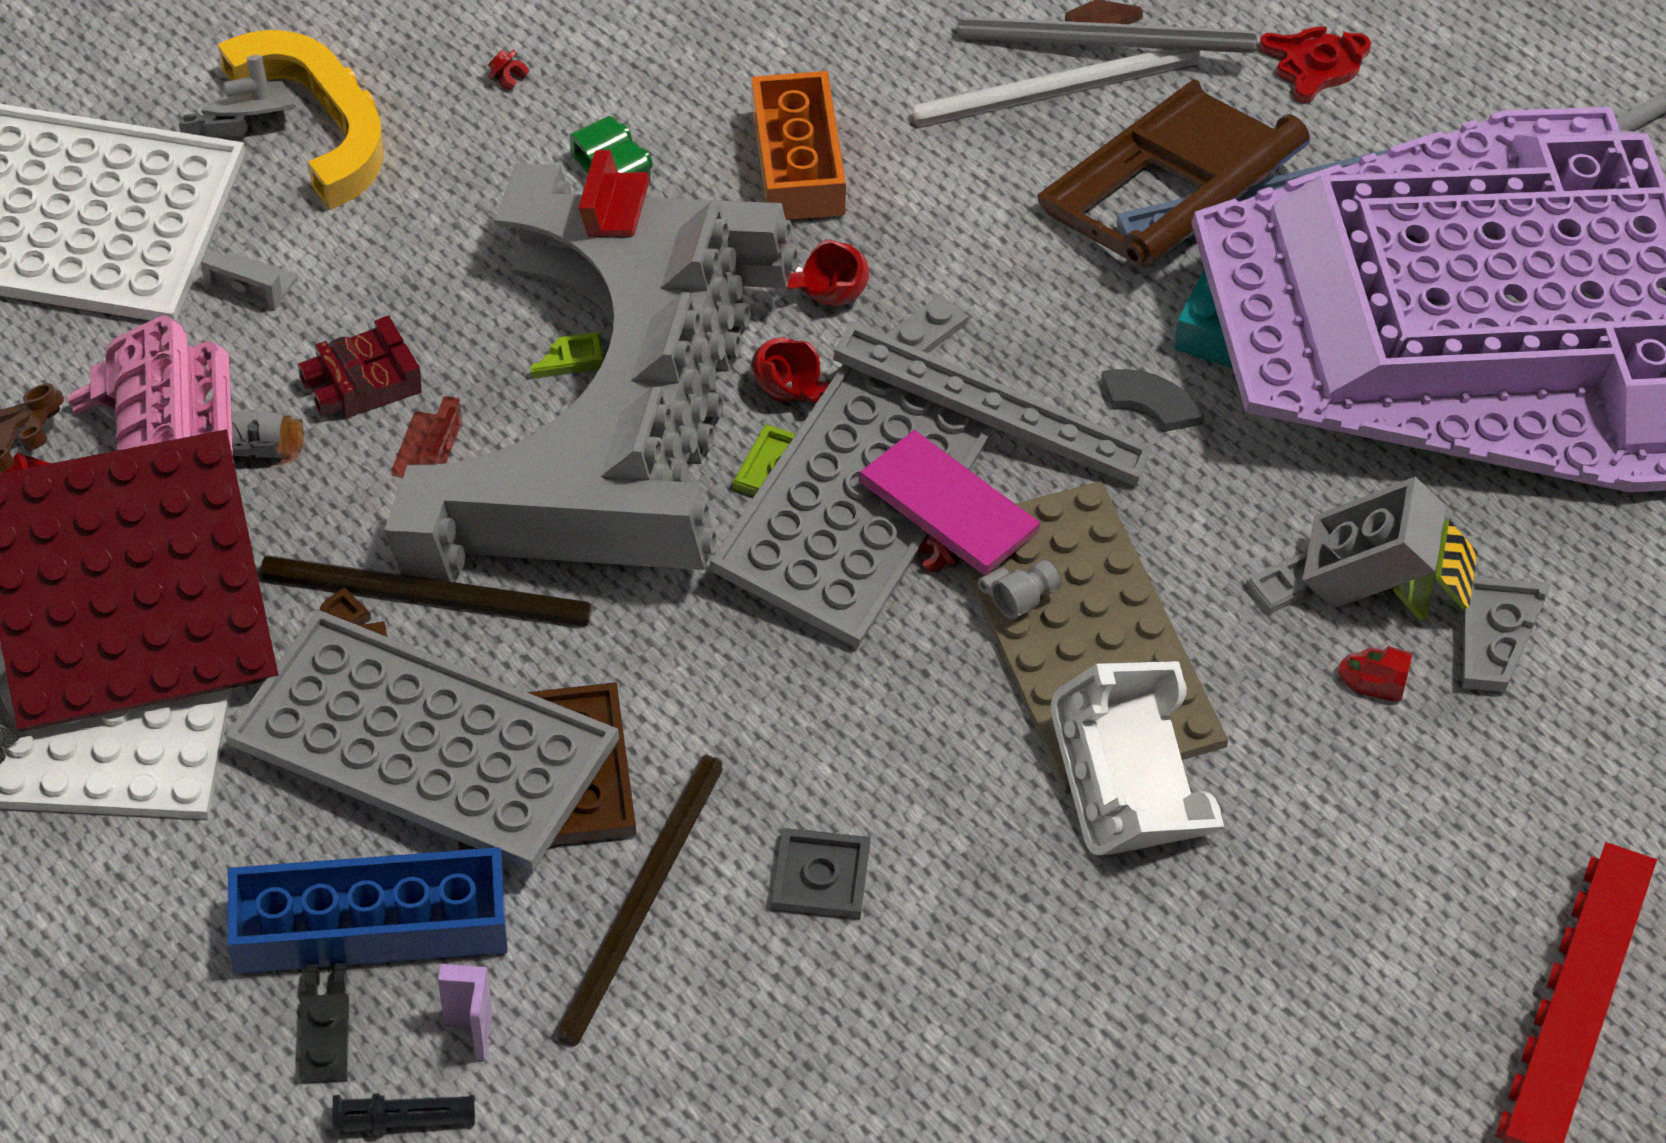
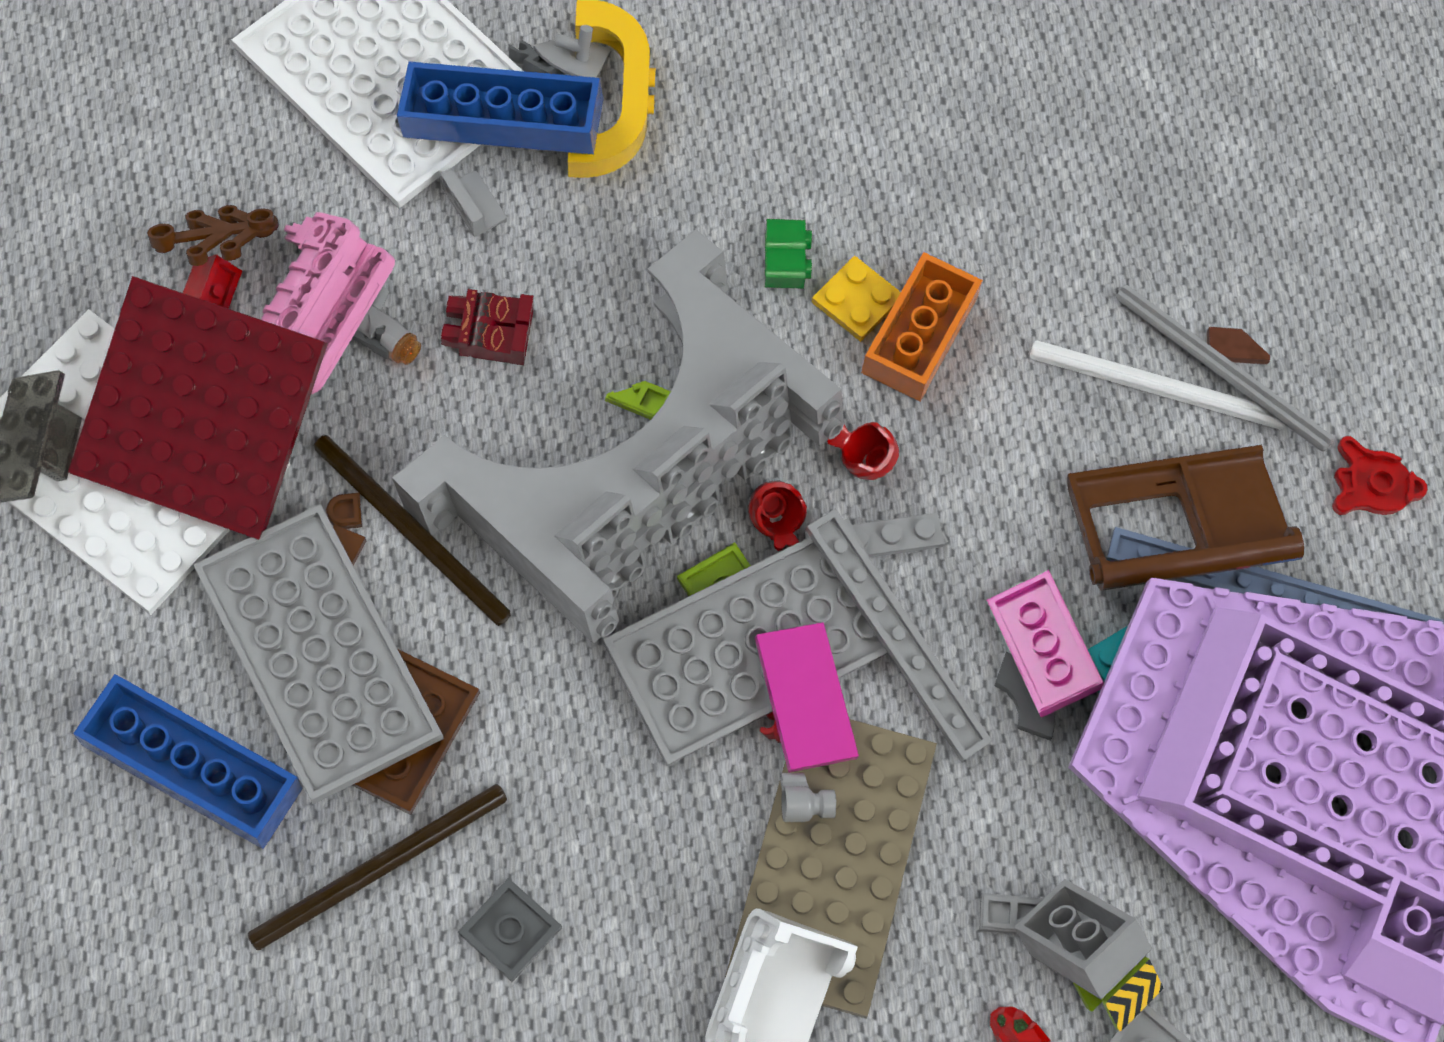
camera: 30 degrees right, 15 degrees up
(222, 166) = (500, 107): none -> blue brick
(325, 1028) = (109, 826): pearl dark grey hinge -> none
(430, 437) = (496, 412): clear red panel -> none
(460, 1112) = (92, 918): black pin -> none
(467, 1002) = (200, 890): lavender panel -> none
(503, 64) = (765, 129): red plate -> none
(612, 199) = (729, 307): red panel -> none
(711, 161) = (856, 298): none -> yellow plate
(1135, 336) = (1045, 643): none -> tile

